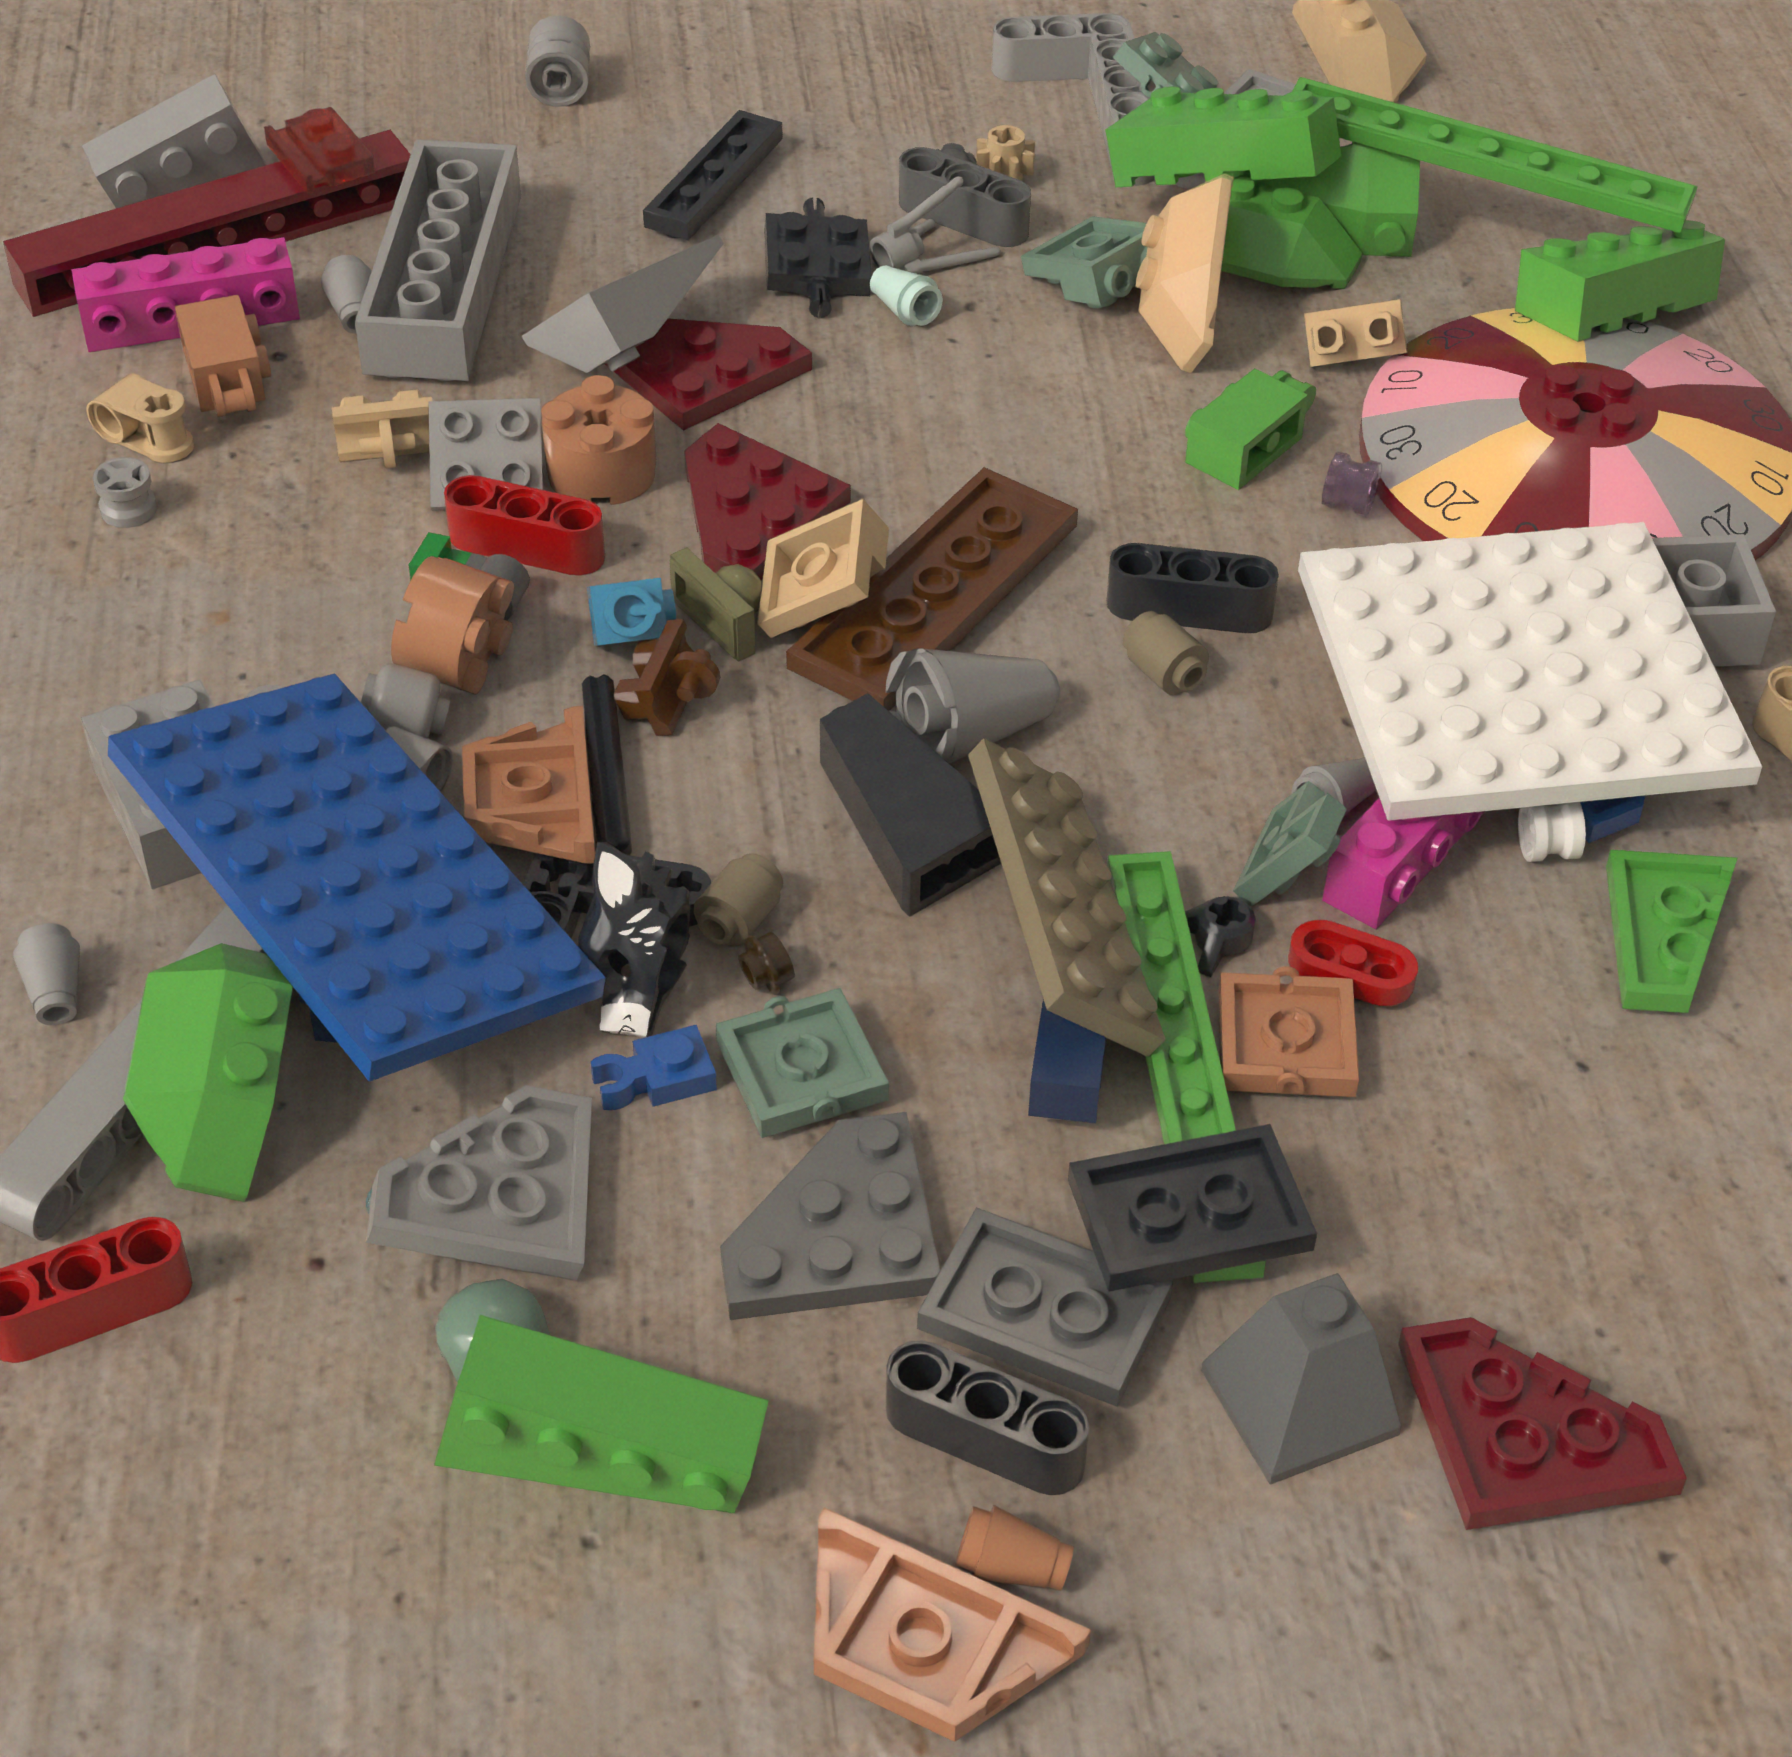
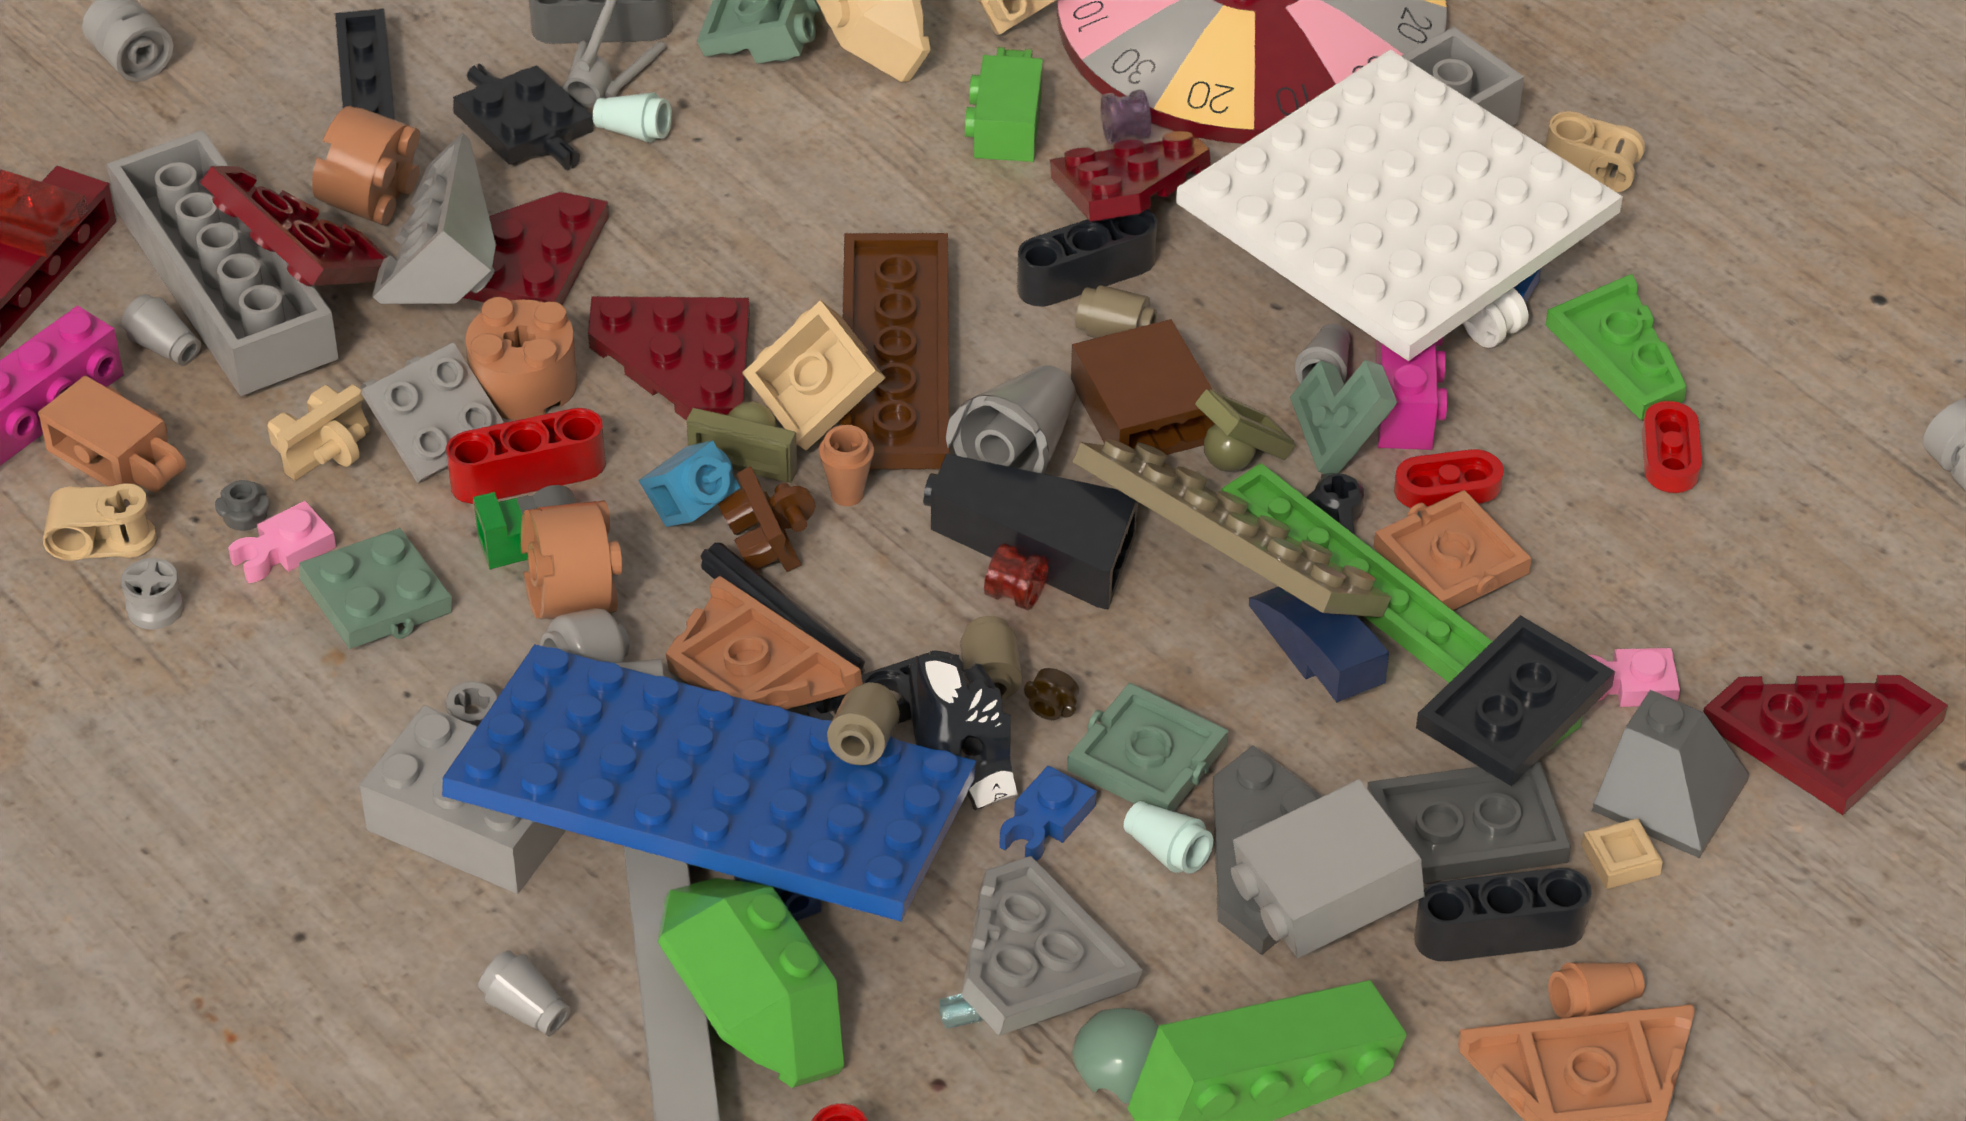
camera: 35 degrees left, 0 degrees up
(271, 459) = (243, 504): none -> dark grey plate
(277, 504) = (283, 539): none -> bright pink plate
(299, 574) = (375, 588): none -> sand green plate
(491, 255) = (286, 225): none -> dark red plate
(509, 881) = (863, 724): none -> dark tan brick
(626, 225) = (366, 164): none -> nougat brick
(740, 1155) = (1171, 837): none -> light aqua cone
(776, 659) = (846, 462): none -> nougat cone
(821, 1264) = (1327, 869): none -> light grey brick
(836, 838) = (1016, 576): none -> clear red wheel
(1126, 732) = (1142, 387): none -> reddish brown brick
(1176, 809) = (1238, 432): none -> olive tile
(1184, 1430) = (1622, 853): none -> tan tile
(1267, 528) = (1125, 177): none -> dark red plate
(1370, 1261) = (1641, 671): none -> bright pink plate
(1615, 1059) = (1671, 447): none -> red plate

